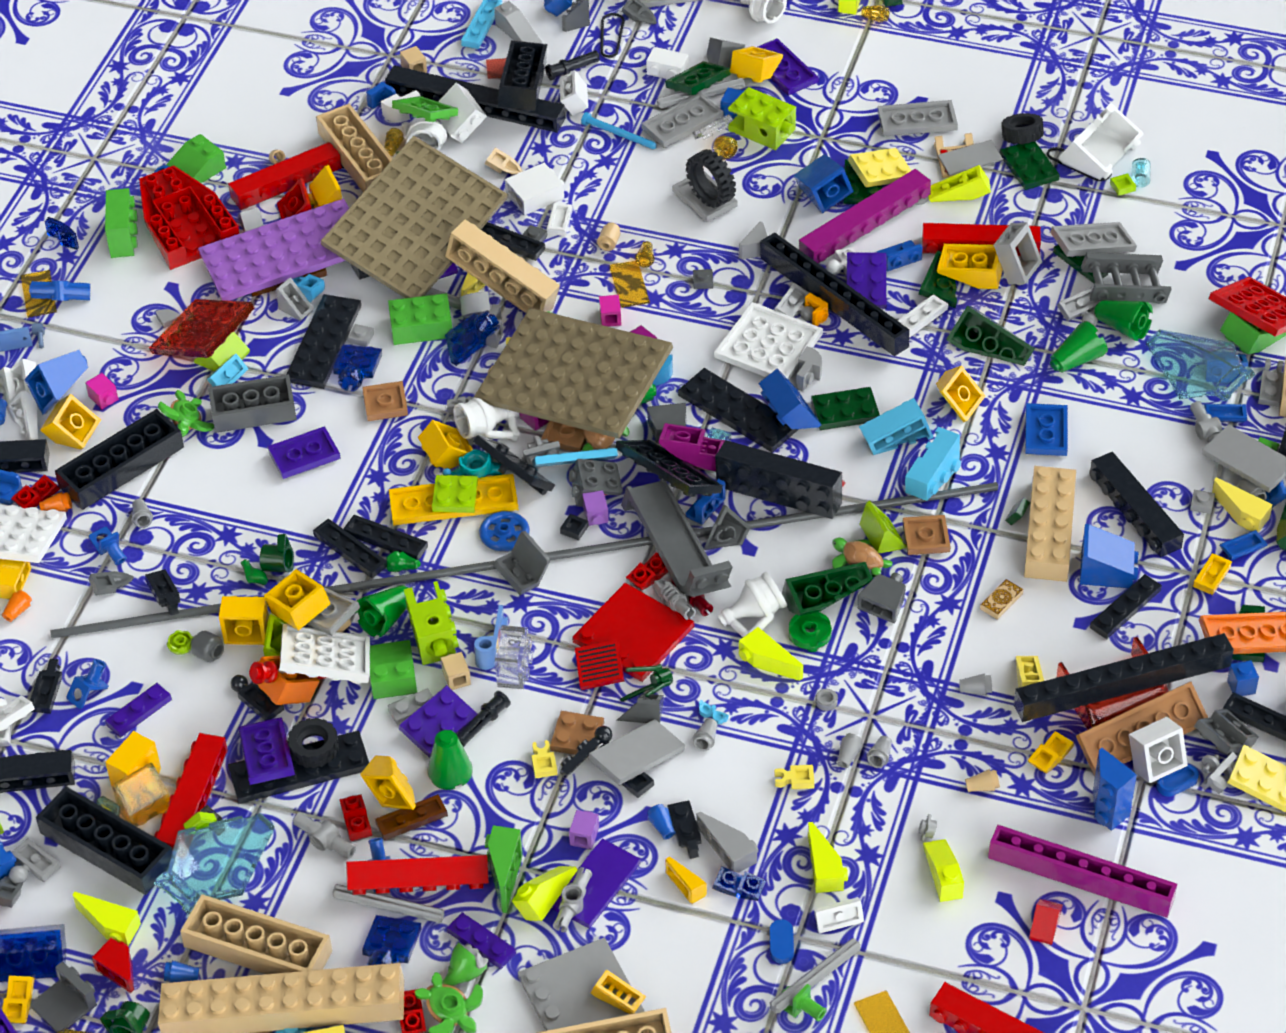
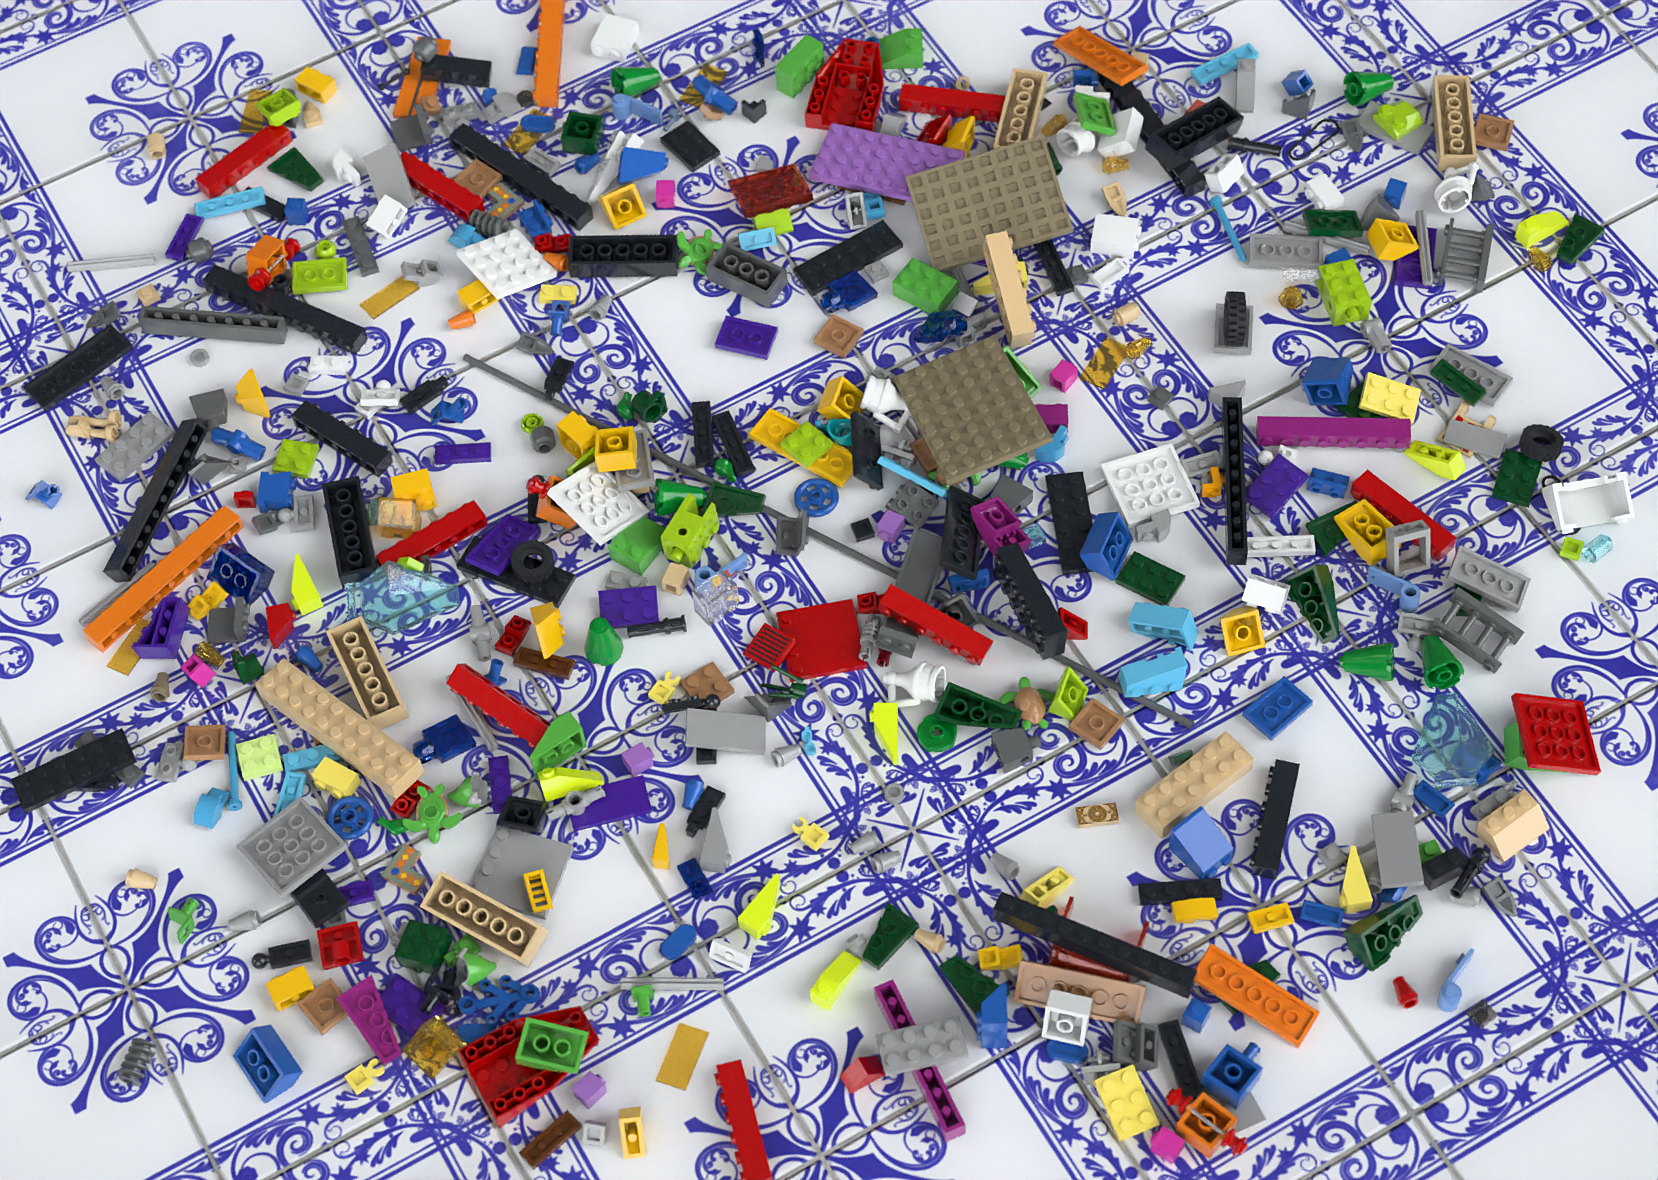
camera: 45 degrees right, 10 degrees up
(72, 307) = (710, 112): none -> medium nougat plate
(79, 532) = (558, 292): none -> light yellow plate
(91, 342) = (690, 146): none -> black plate
(110, 283) = (754, 111): none -> black panel
(377, 69) = (1101, 55): none -> orange tile
(447, 572) = (733, 500): none -> dark green wing
(474, 141) = (1113, 165): none -> clear yellow cone
(535, 944) = (523, 814): none -> black slope
(714, 548) = (935, 625): none -> red brick
(719, 29) = (1395, 193): none -> blue brick
(788, 56) = (1424, 250): none -> light grey axle
(813, 131) = (1374, 331): none -> light grey piece
(830, 30) = (1479, 264): none -> dark grey fence
(919, 125) = (1458, 382): none -> dark green plate
(948, 803) = (892, 932): none -> dark green wing
(951, 352) = (1265, 593): none -> white brick
(1050, 286) = (1407, 591): none -> medium blue door
(1055, 789) = (968, 982): none -> dark green wing
(1079, 853) = (922, 1046): none -> light grey plate
(1152, 609) = (1194, 909): none -> yellow slope

